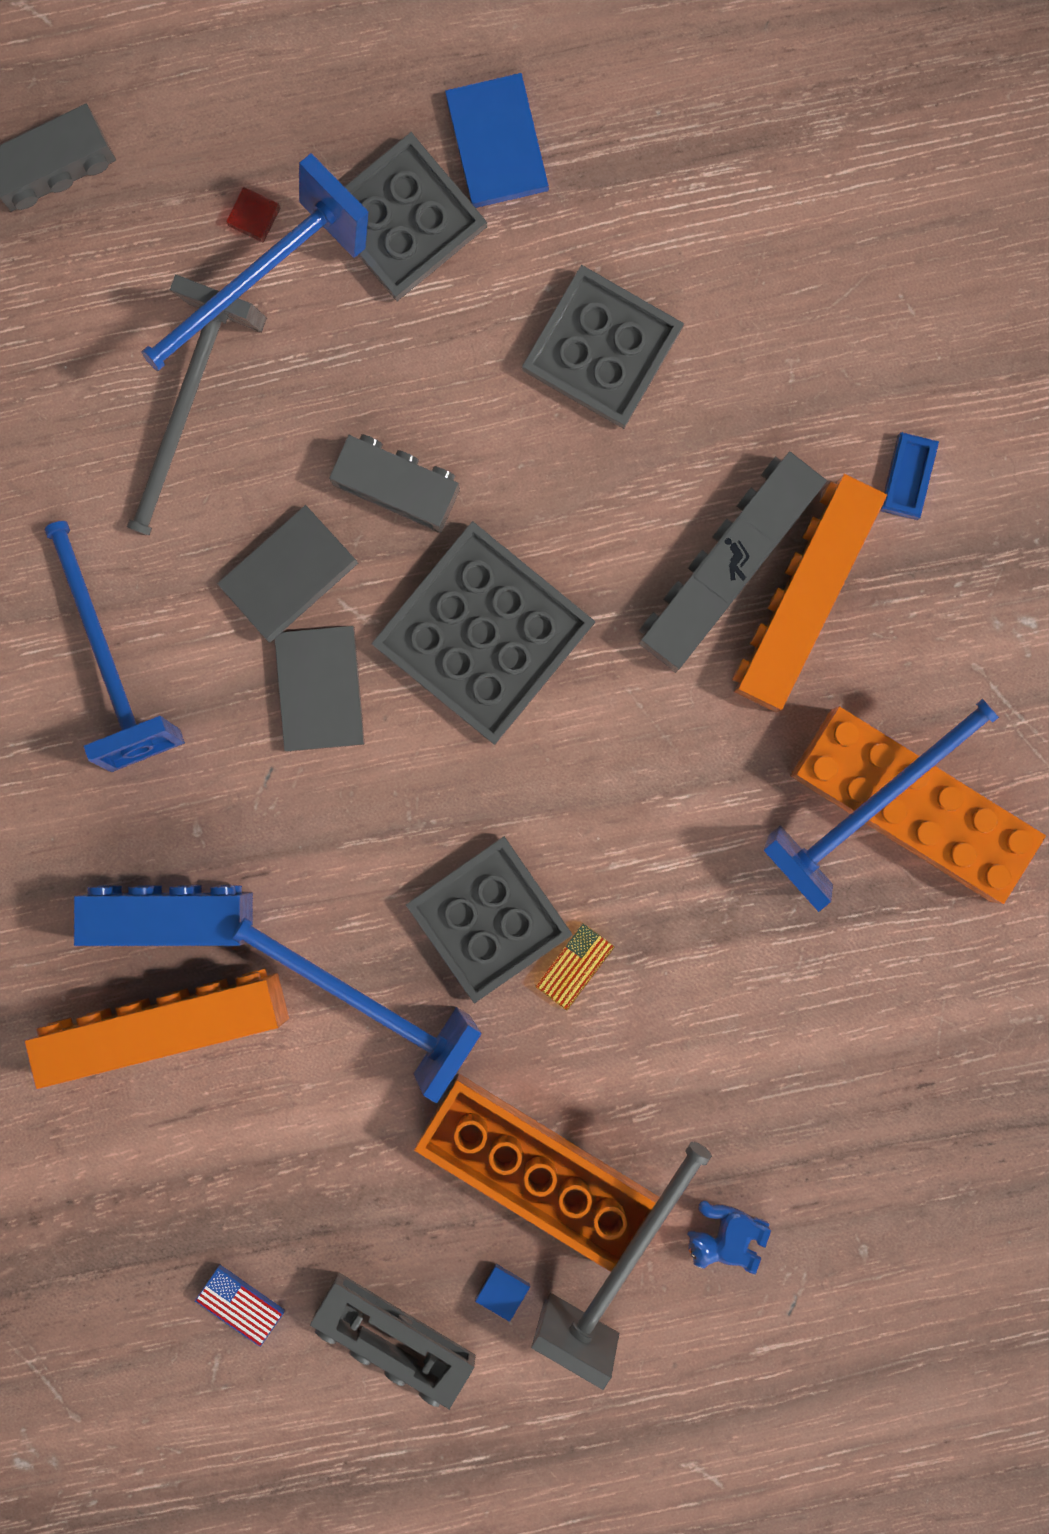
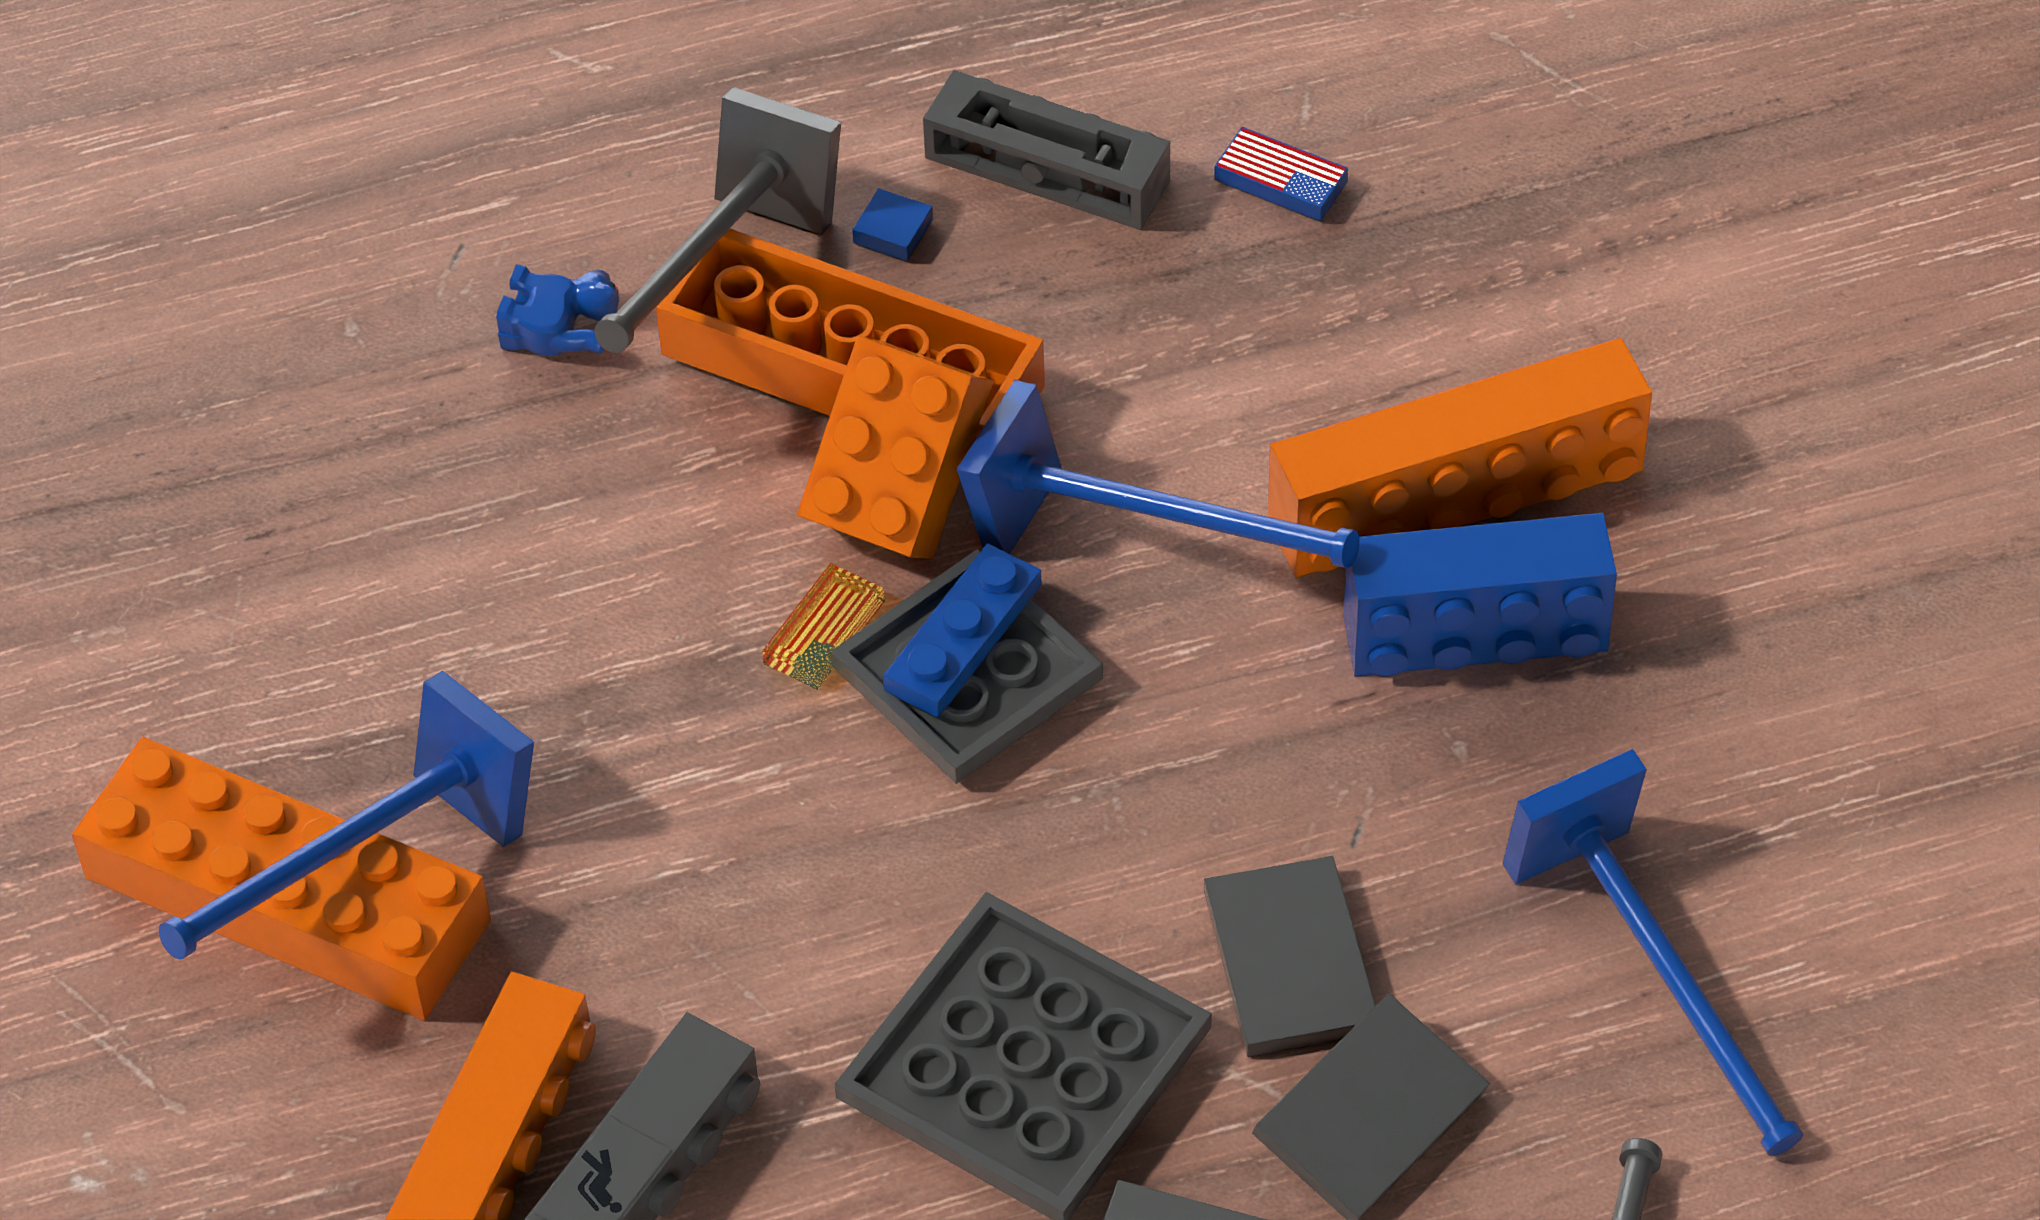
camera: 175 degrees right, 35 degrees down
(489, 936) = (962, 630): none -> blue plate
(519, 1072) = (894, 448): none -> orange brick

